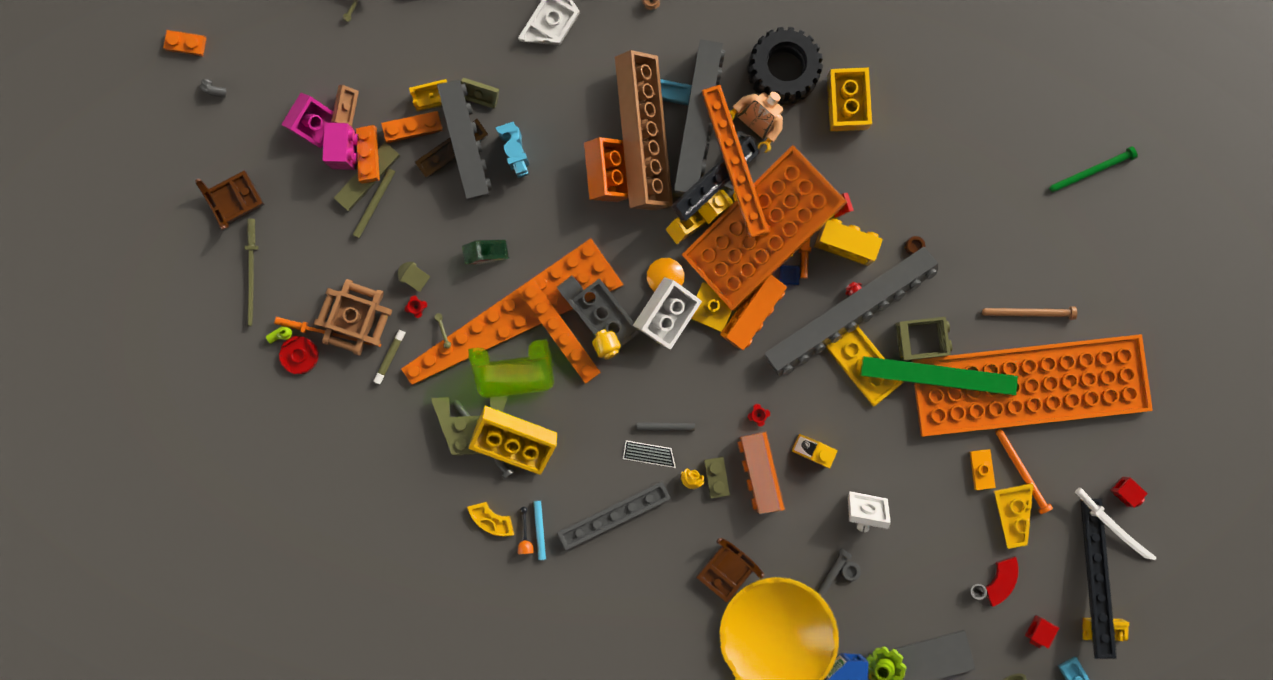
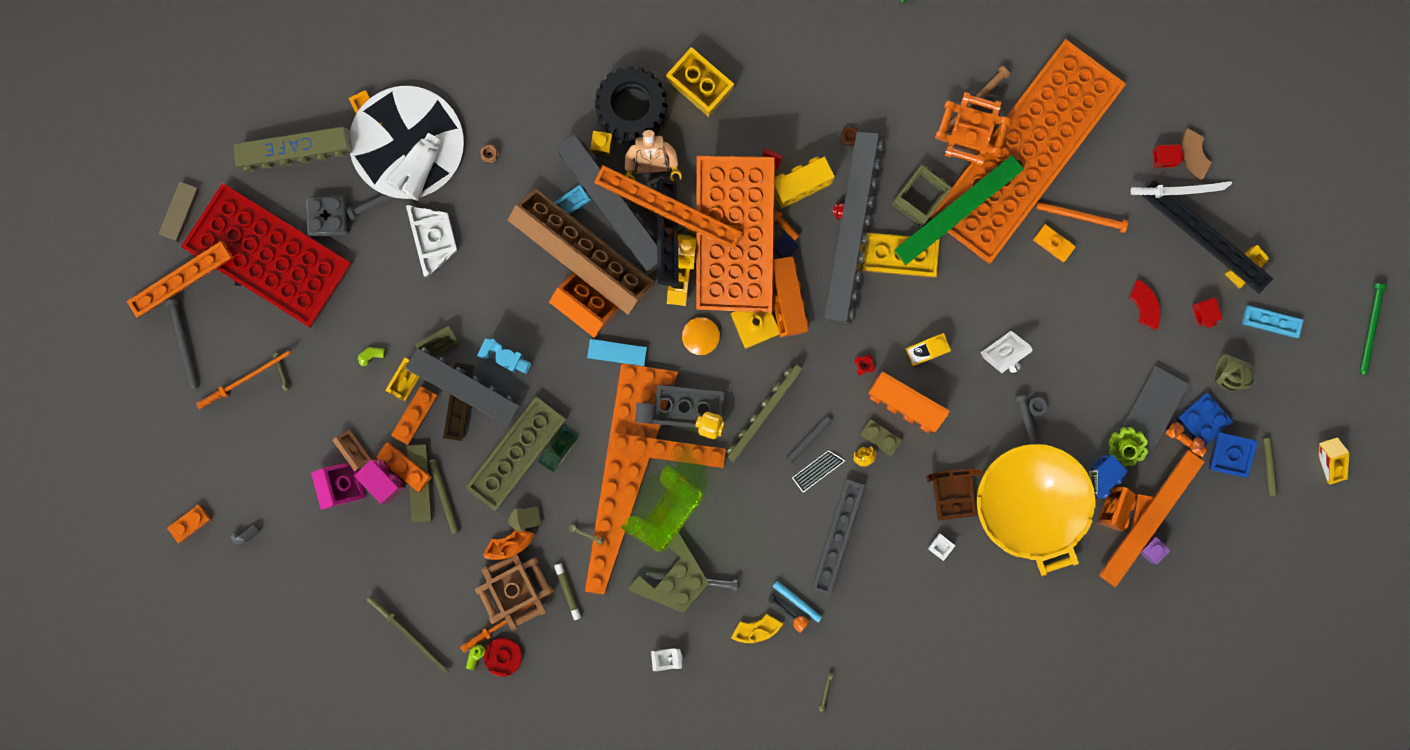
camera: 45 degrees left, 0 degrees up
(231, 198) = (340, 597): reddish brown piece -> none
(381, 283) = (508, 546): none -> orange tile
(407, 474) = (667, 659): none -> white bracket
(409, 308) = (544, 536): red plate -> none
(425, 52) = (369, 353): none -> lime arm
(453, 224) = (515, 453): none -> olive plate
(479, 622) = (822, 708): none -> olive hinge
(513, 440) = (715, 558): yellow slope -> none
(595, 227) = (617, 352): none -> medium azure tile
(645, 375) = (768, 406): none -> olive plate
(667, 313) = (729, 360): white brick -> none
(679, 598) = (941, 547): none -> white plate
(735, 72) = (601, 143): none -> yellow brick
(981, 588) = (1136, 325): light grey hinge -> none
(1008, 329) = (973, 129): none -> orange brick
(1014, 512) = (1104, 249): yellow wing -> none
(1148, 511) = (1193, 154): none -> medium nougat tile

